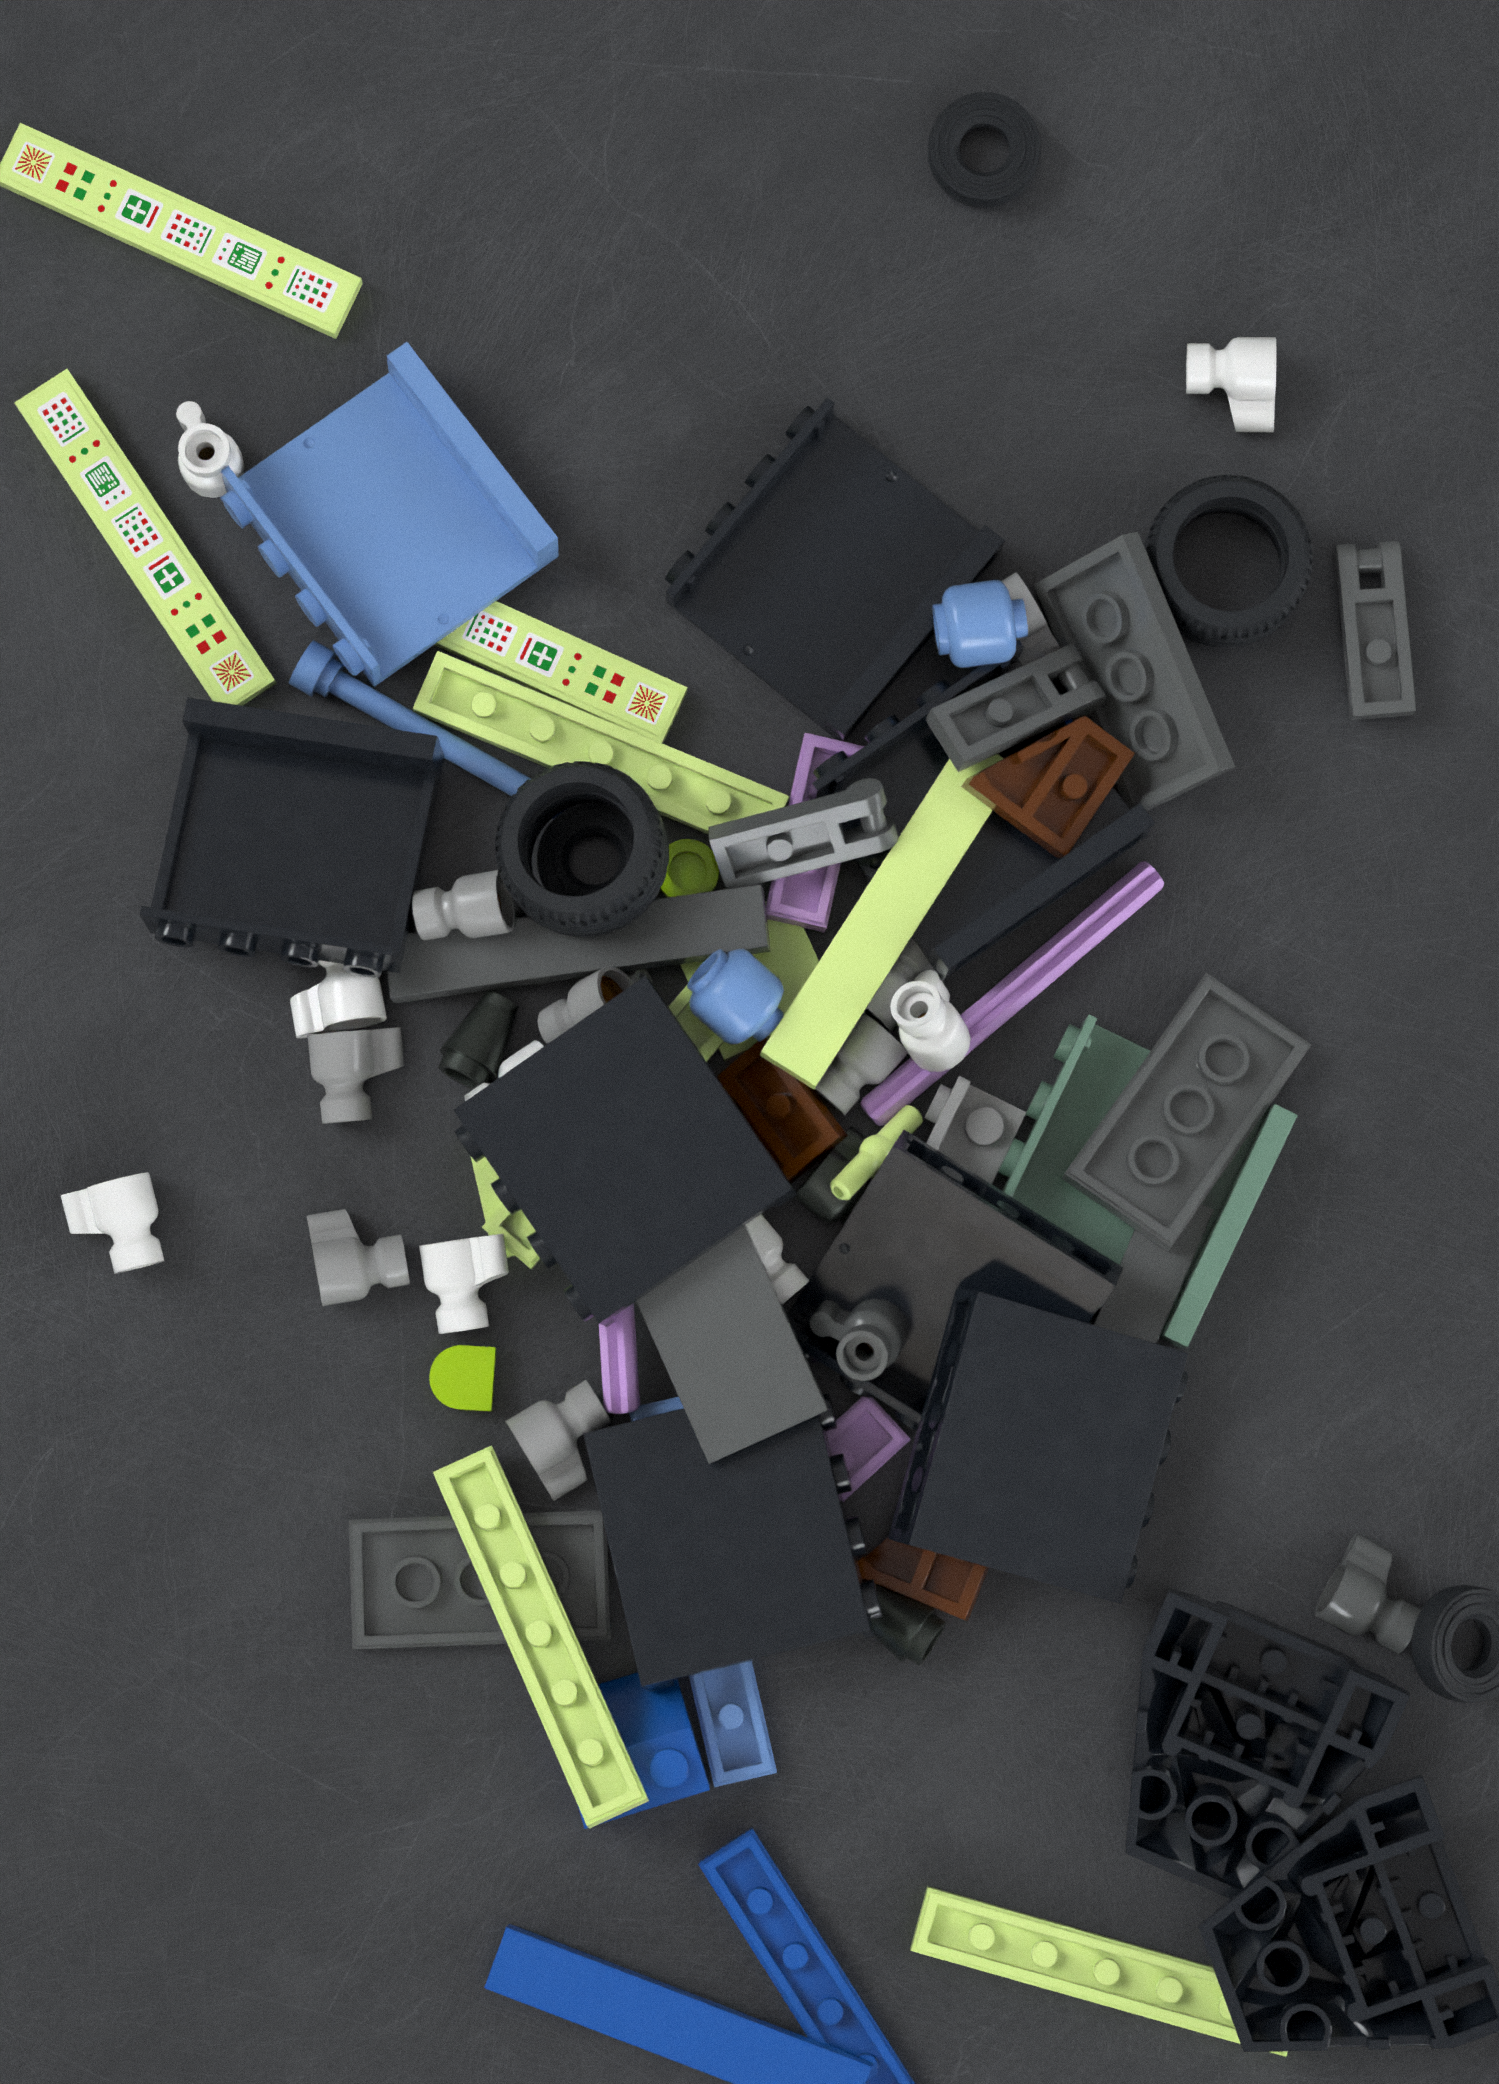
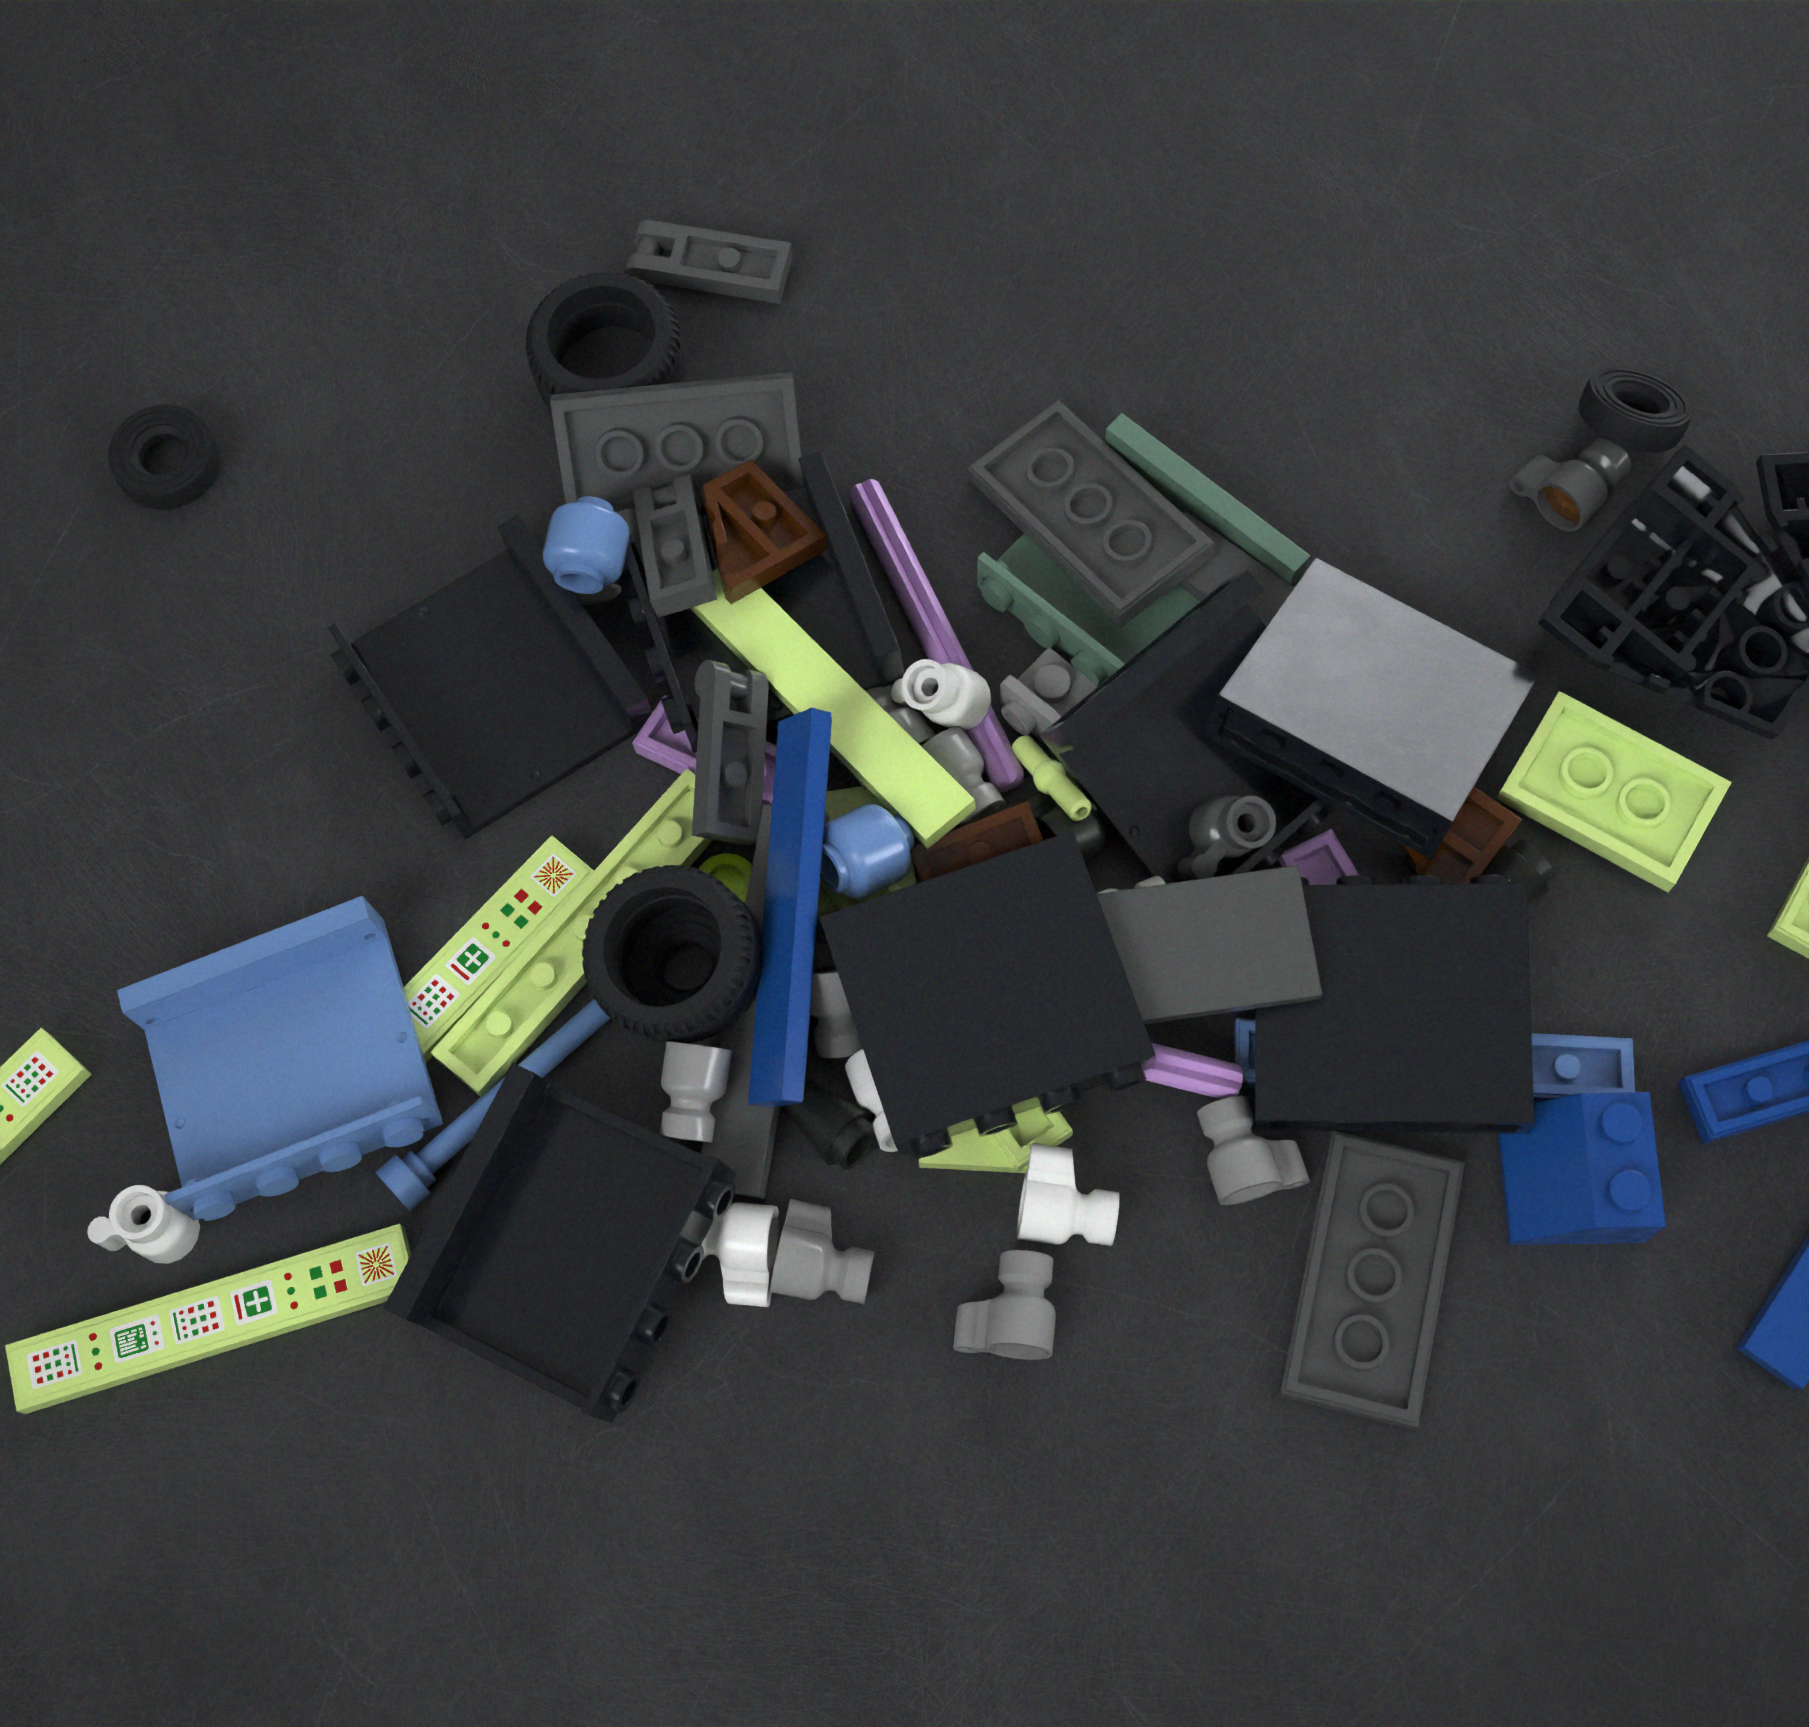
camera: 65 degrees left, 15 degrees down
(123, 1211) = (891, 1542): white piece -> none
(464, 1377) = (1162, 1234): lime tile -> none
(540, 1637) = (1457, 1217): yellowish green tile -> none
(657, 944) = (790, 910): none -> blue tile
(1029, 1705) = (1614, 791): none -> yellowish green plate
(1246, 374) = (450, 298): white piece -> none

